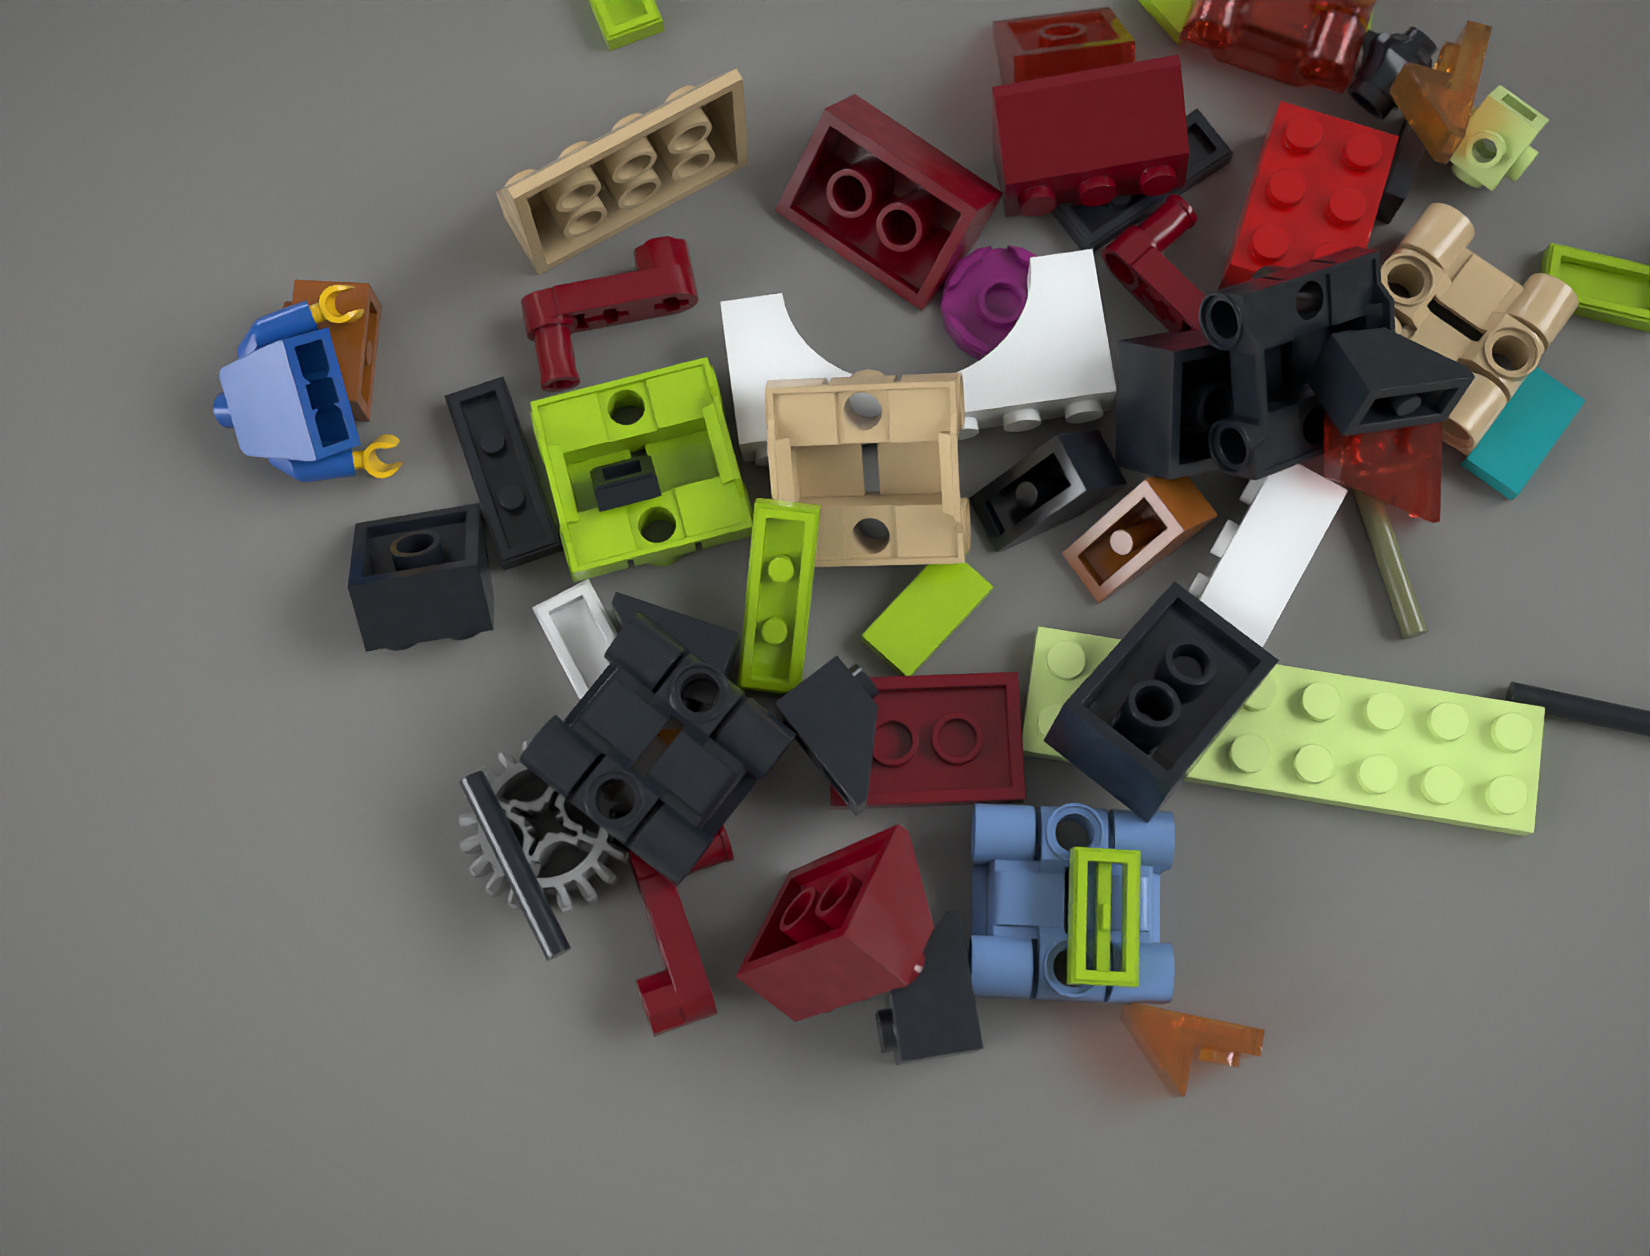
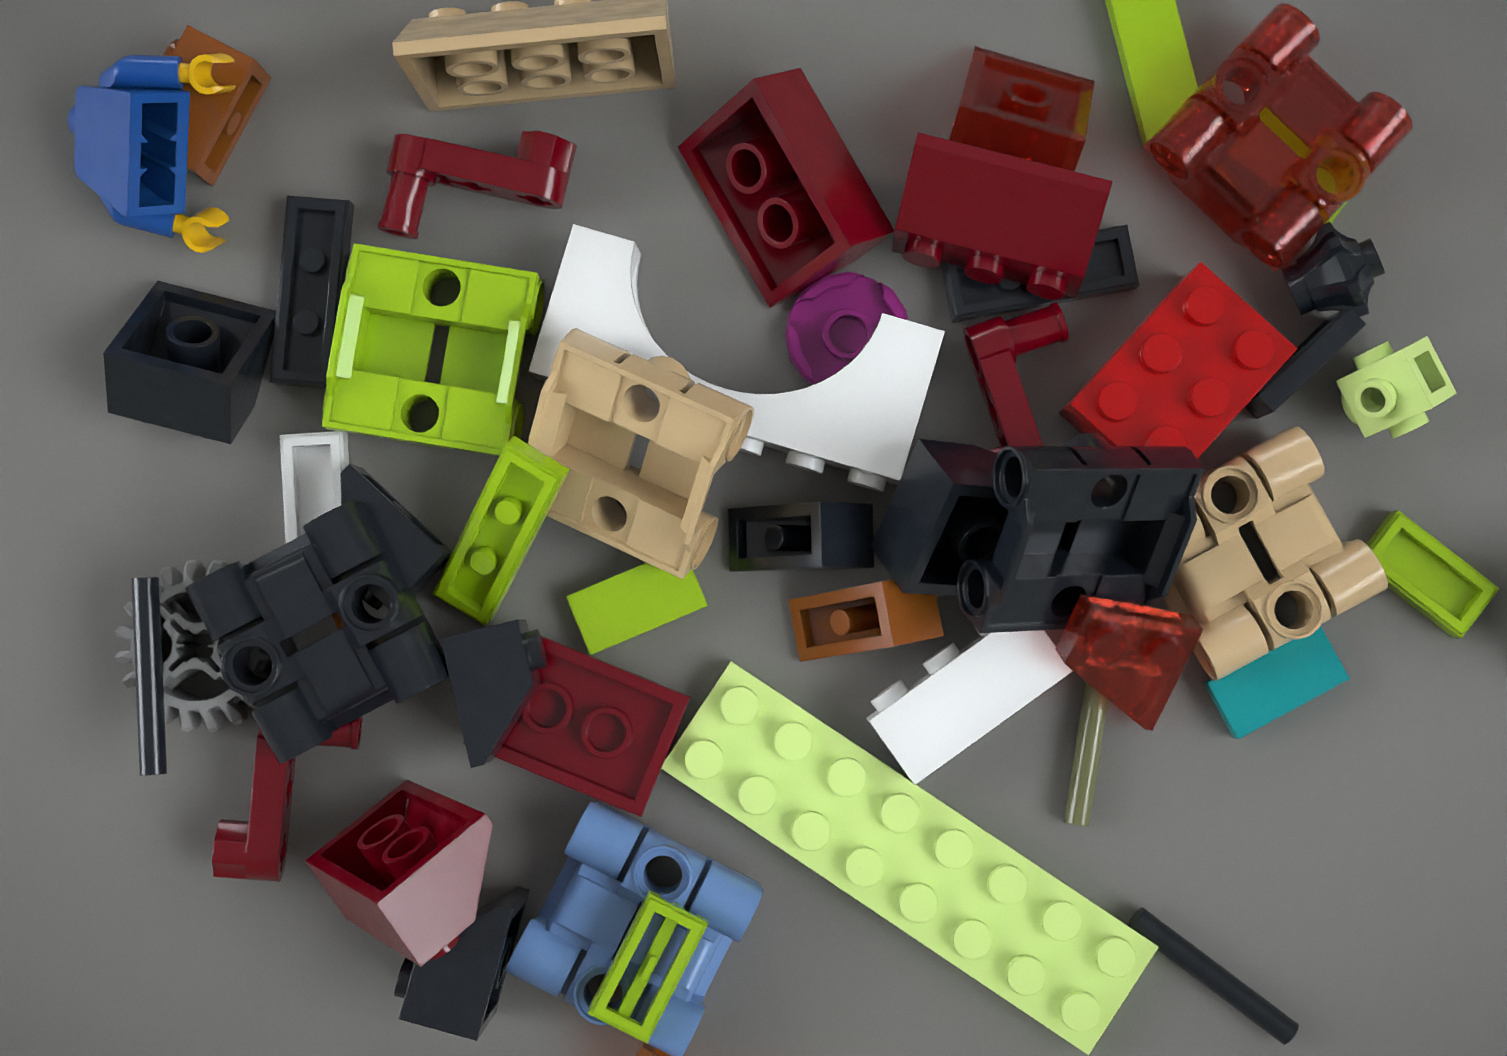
camera: 30 degrees right, 10 degrees up
(625, 482) = (408, 360): black tile -> none
(1159, 701) = (799, 791): black slope -> none
(1385, 381) = (1146, 594): black slope -> none
(1442, 98) = (1351, 337): clear orange slope -> none

